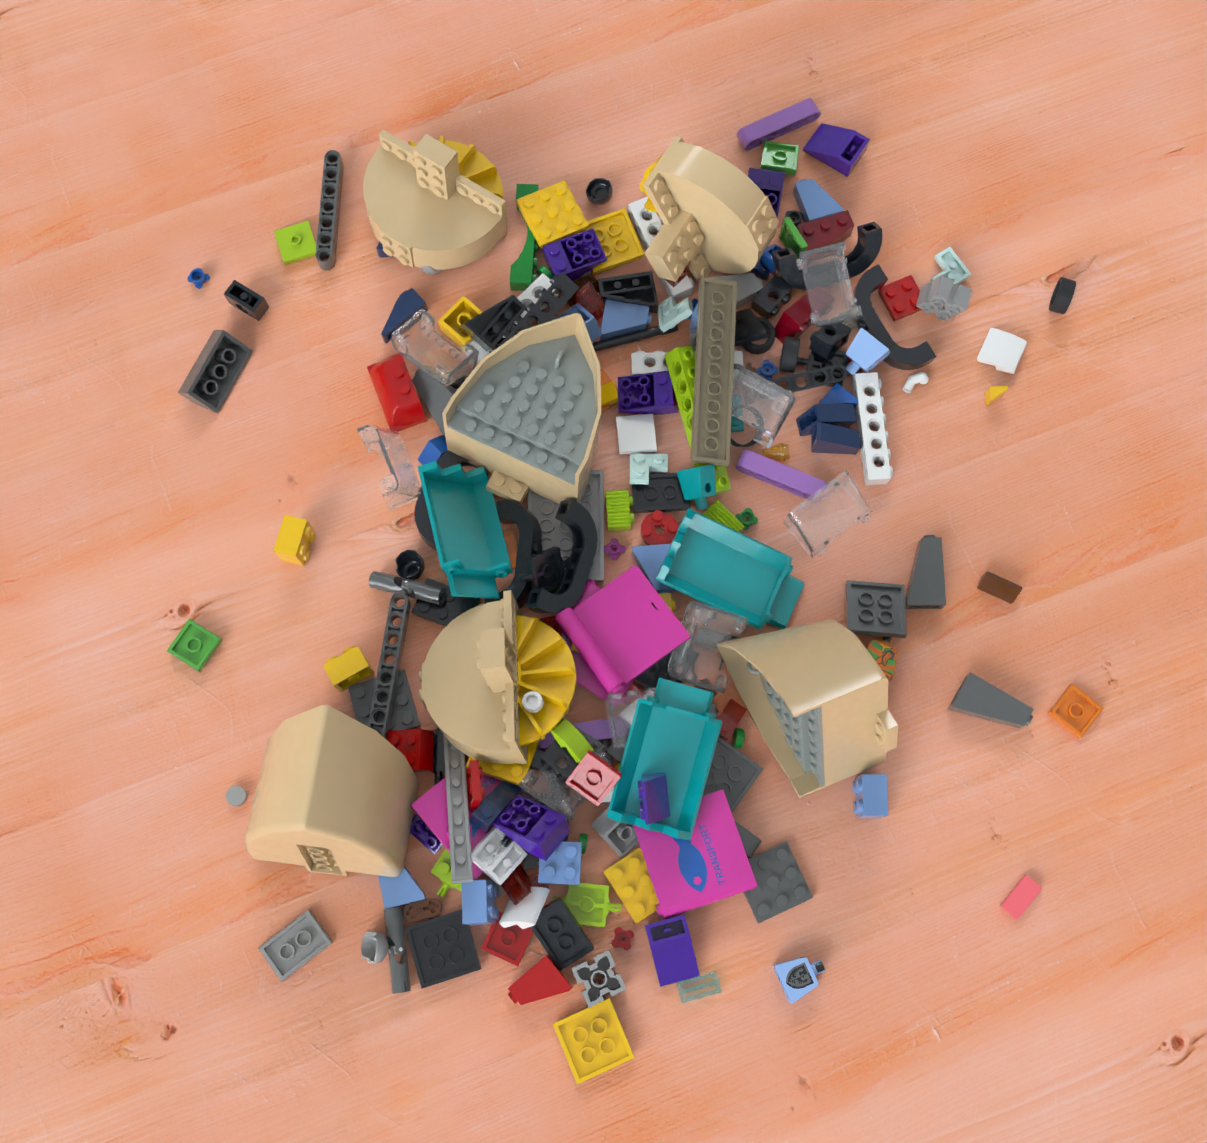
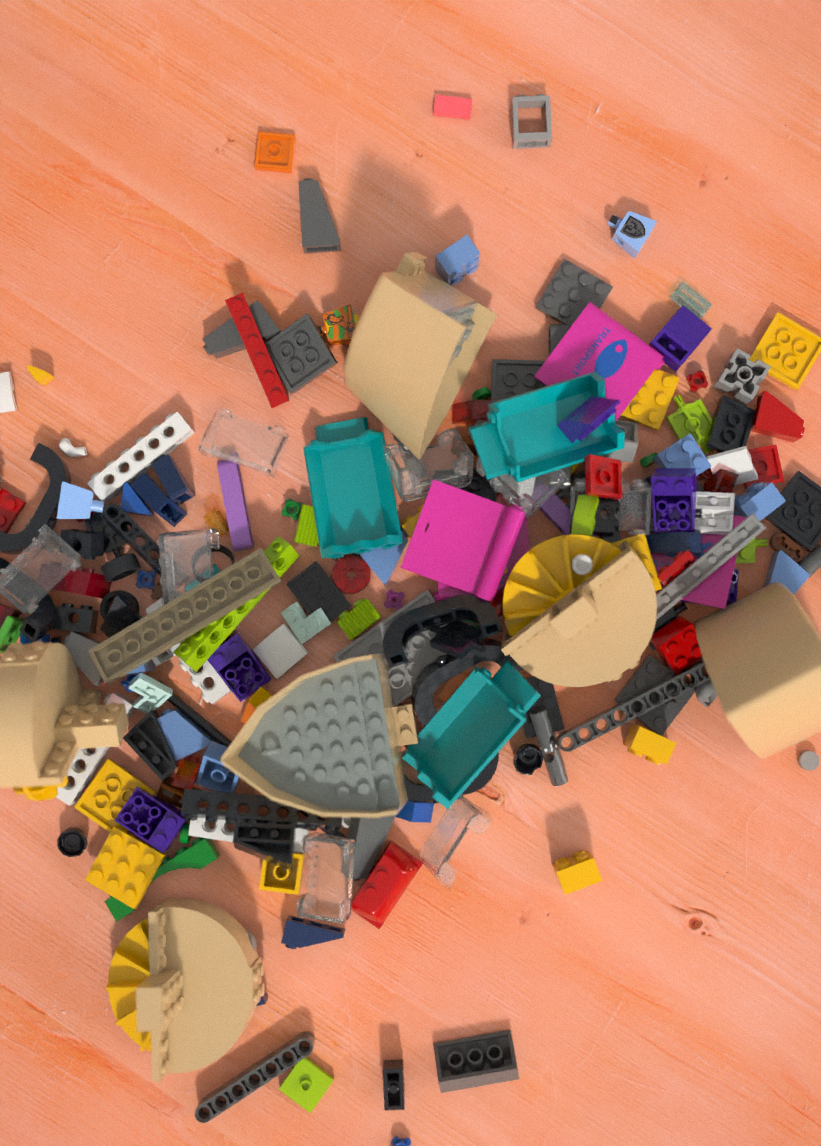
camera: 115 degrees left, 10 degrees up
(194, 645) = (718, 889): bright green plate -> none
(698, 484) = (293, 565): teal torso -> none
(901, 575) = (257, 350): none -> red plate
(942, 948) = (534, 139): none -> light grey window
(999, 587) = (212, 270): reddish brown slope -> none

